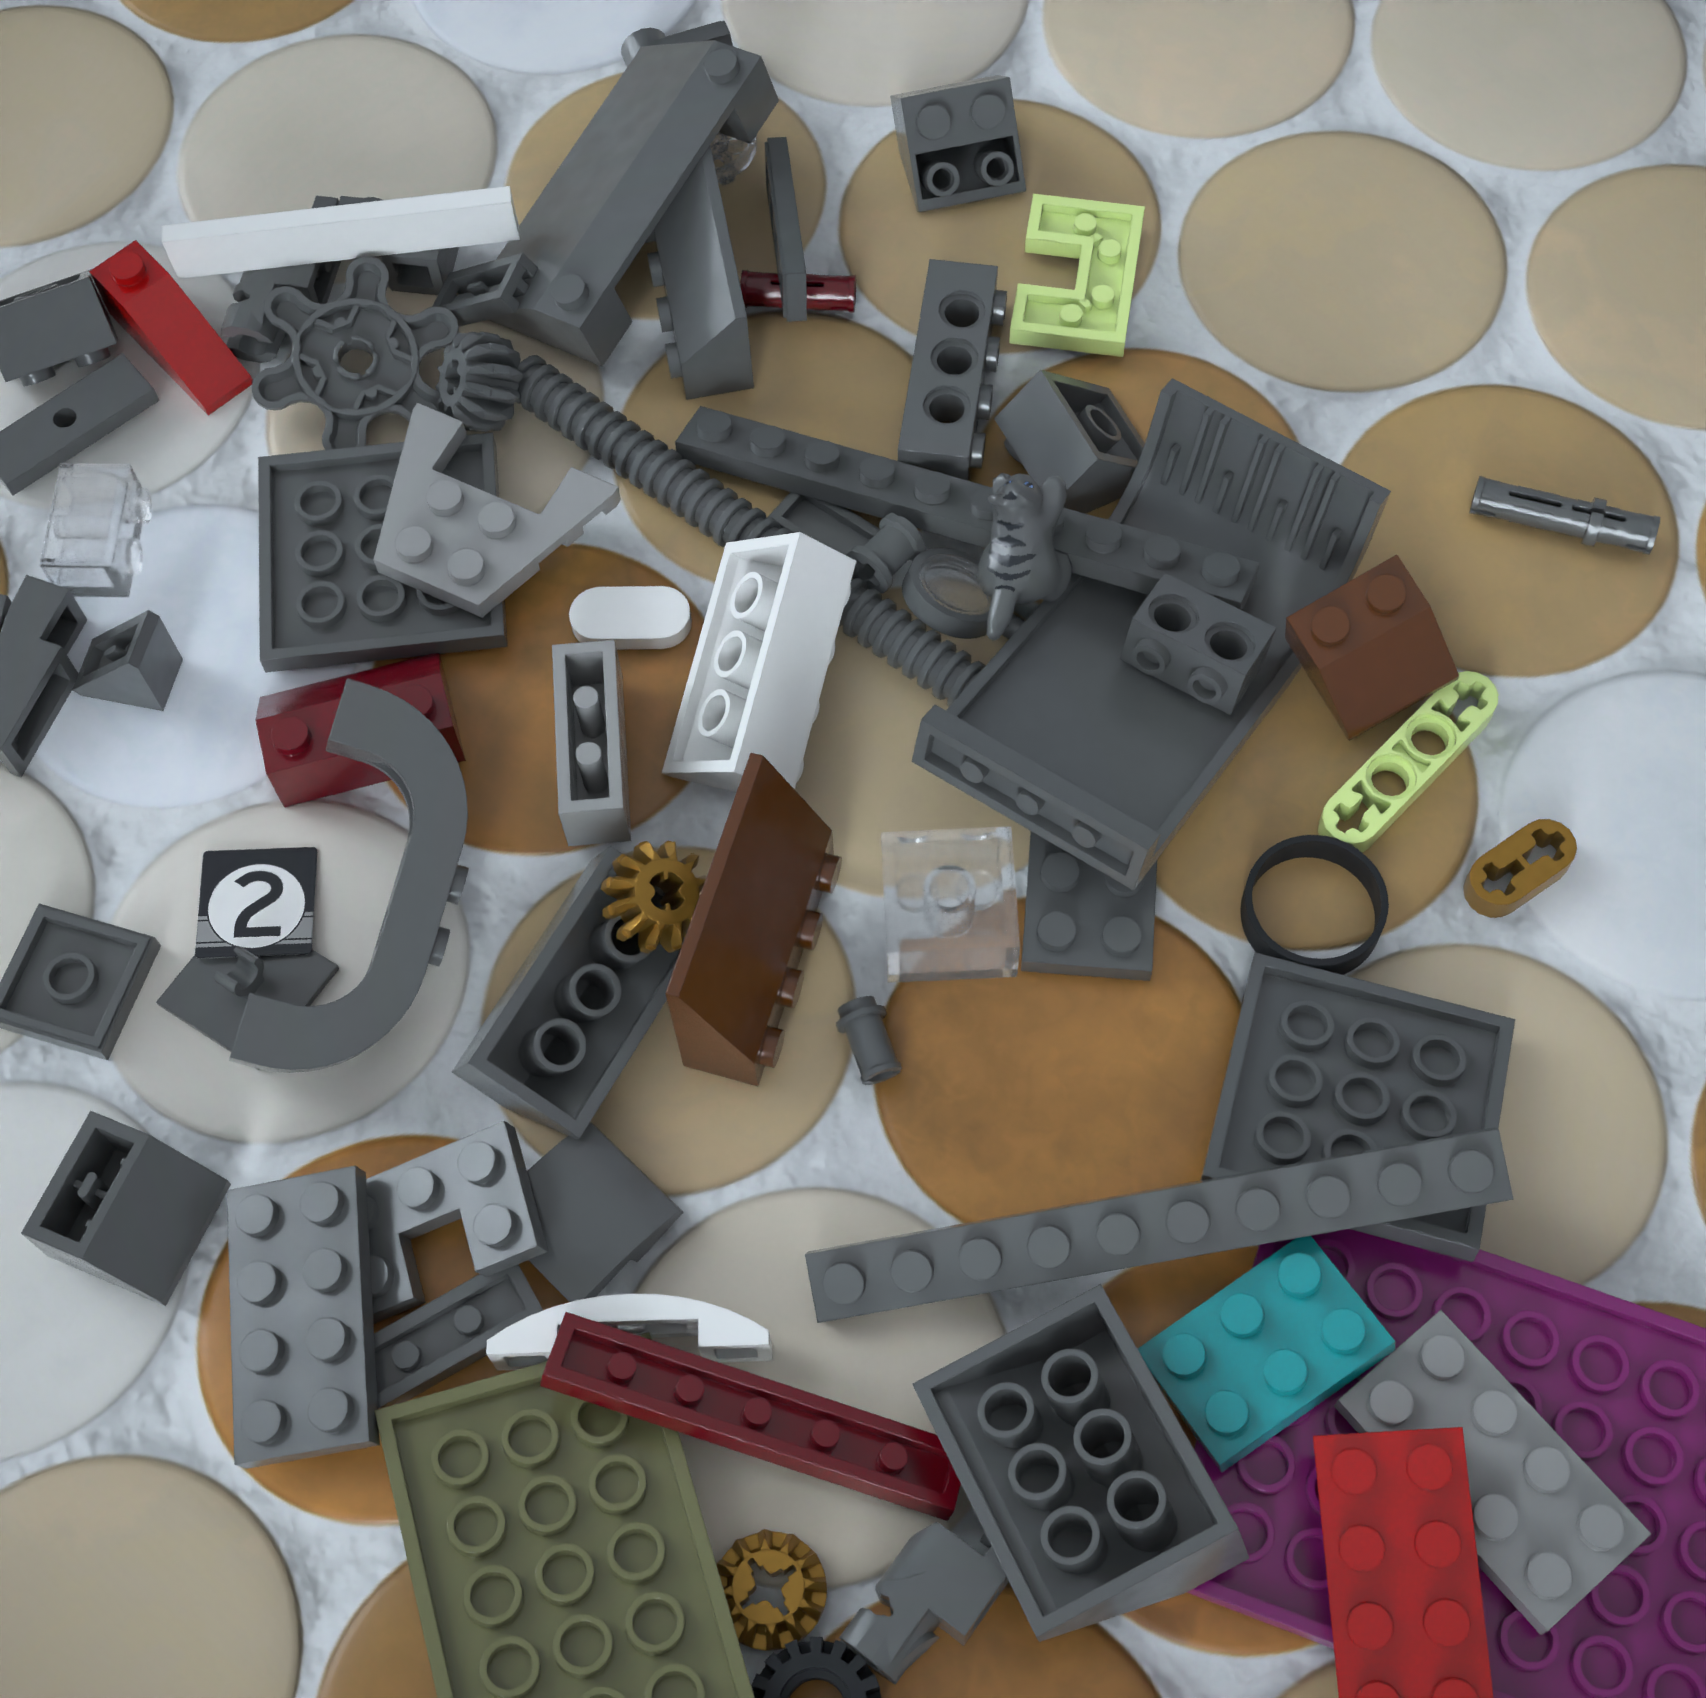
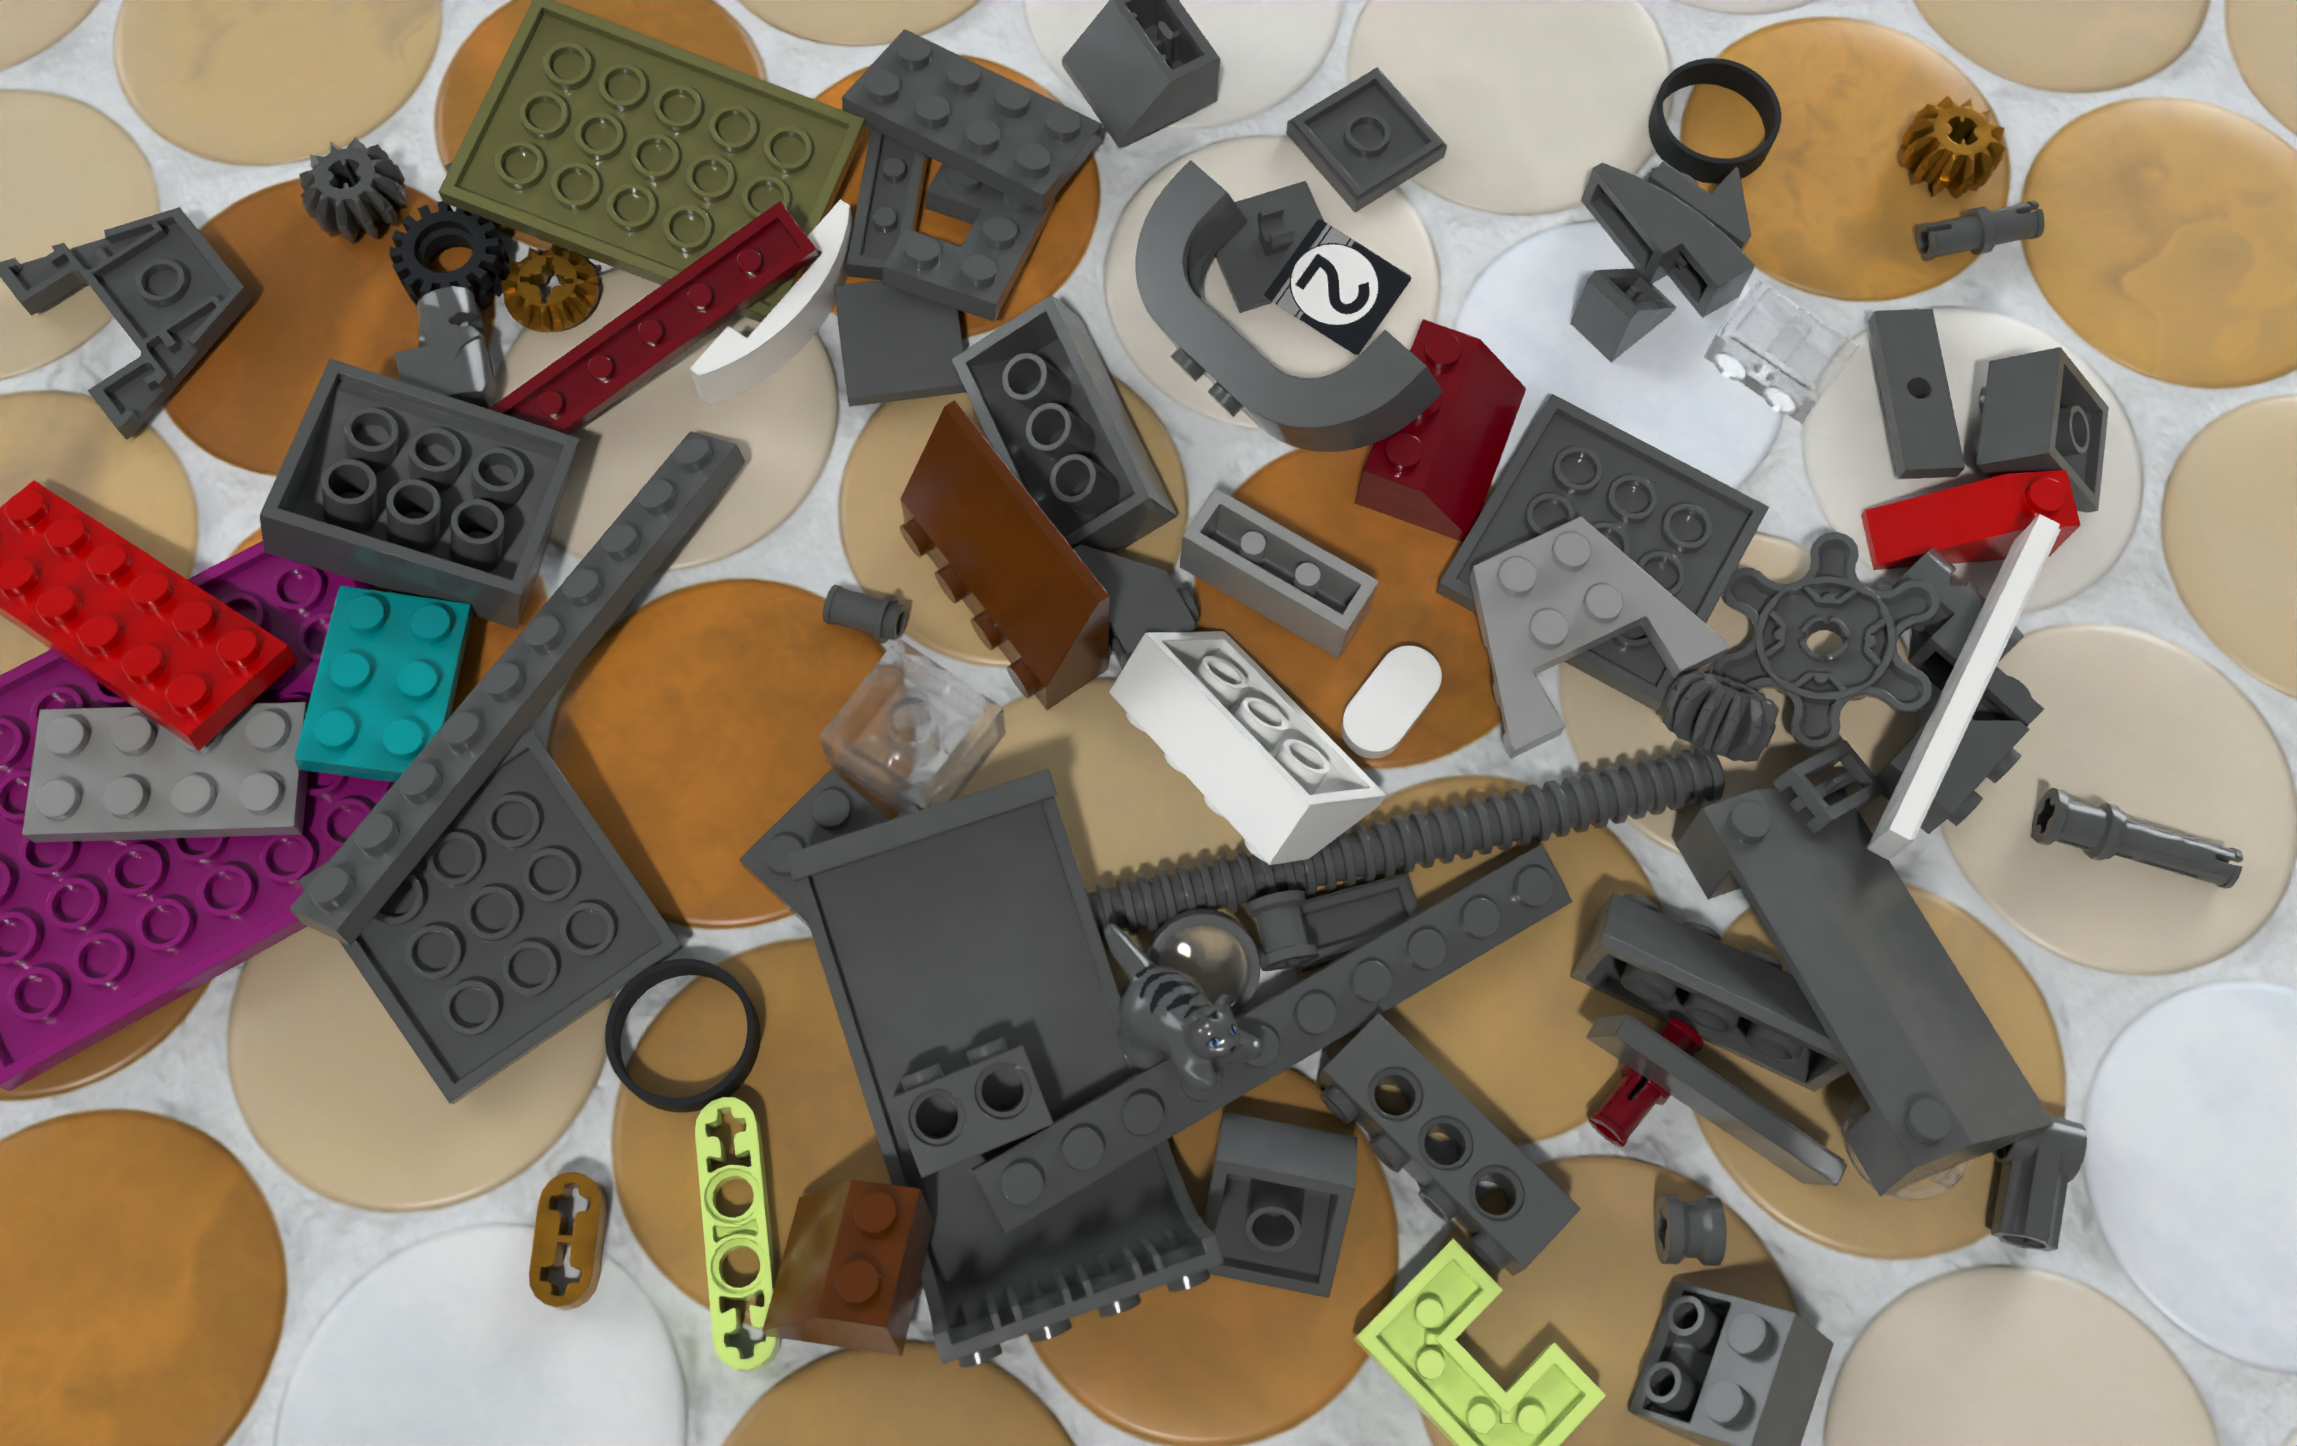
camera: 120 degrees right, 5 degrees up
(380, 133) = (2107, 832): none -> dark grey pin
(635, 888) = (1099, 501): pearl gold gear -> none
(695, 814) = (1140, 600): none -> dark grey slope
(882, 211) = (1690, 1229): none -> dark grey wheel

